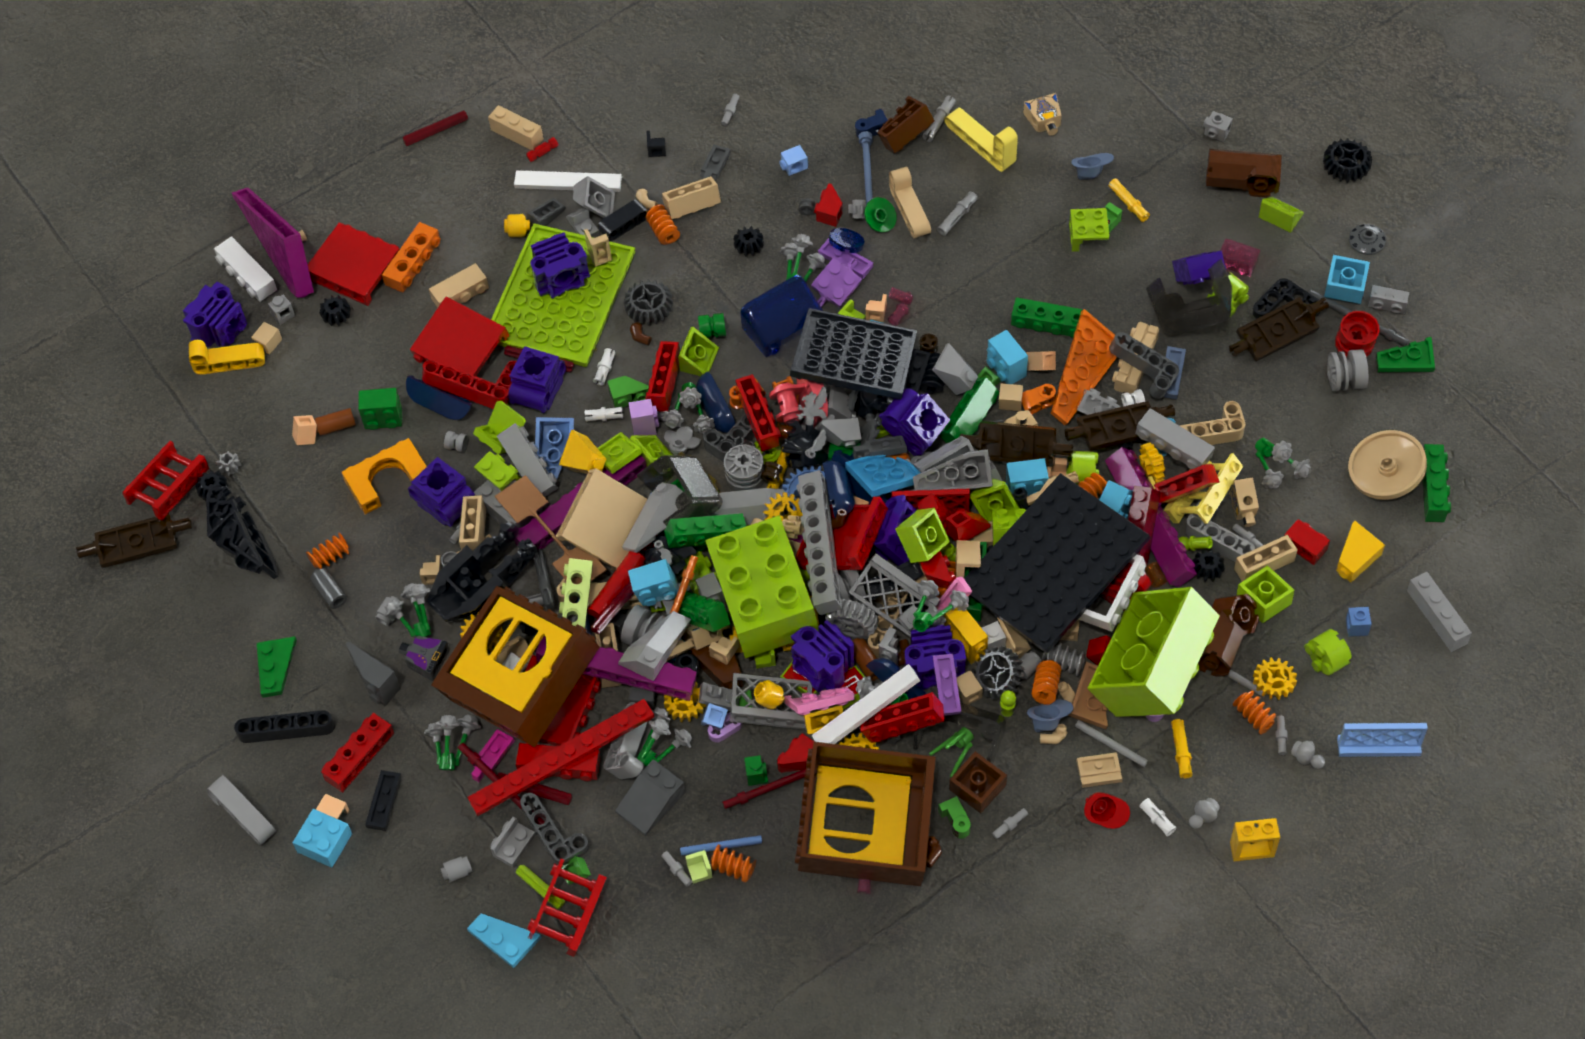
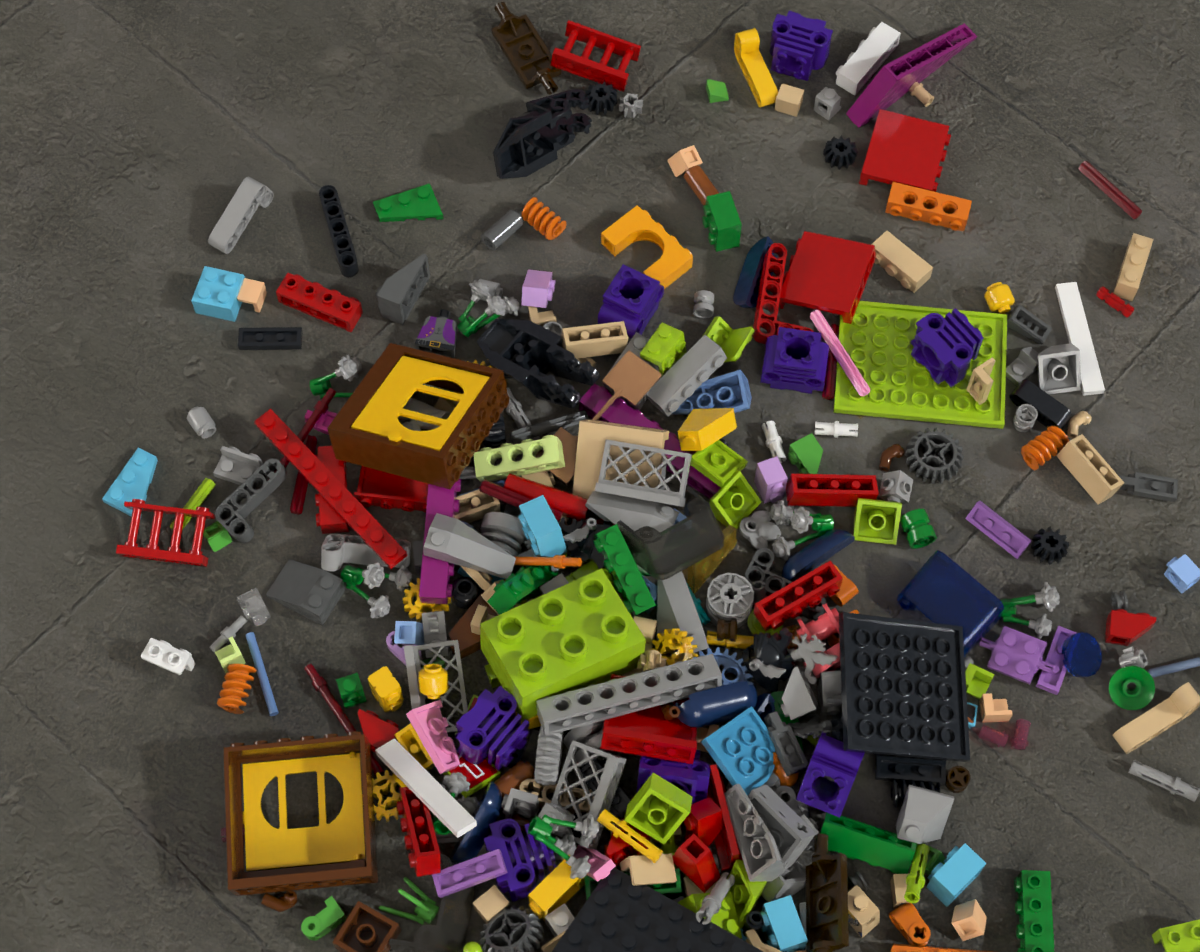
camera: 75 degrees right, 5 degrees up
(235, 395) = (716, 91): none -> bright green slope
(403, 565) = (537, 288): none -> lavender brick
(541, 345) = (840, 353): none -> bright pink axle
(632, 232) = (1025, 418): none -> light grey wheel
(639, 503) = (642, 492): none -> light grey fence
(655, 146) = (1157, 417): black panel -> none
(657, 841) = (254, 607): none -> clear brick
(672, 331) = (896, 487): none -> light grey brick
(690, 916) = (168, 657): none -> white bracket
(725, 272) = (998, 529): none -> medium lavender plate
(764, 738) = (386, 689): none -> yellow brick
(933, 566) = (607, 819): none -> yellow pin
(1005, 513) = (712, 903): none -> light grey pin
(1008, 380) = (914, 888): none -> lime pin

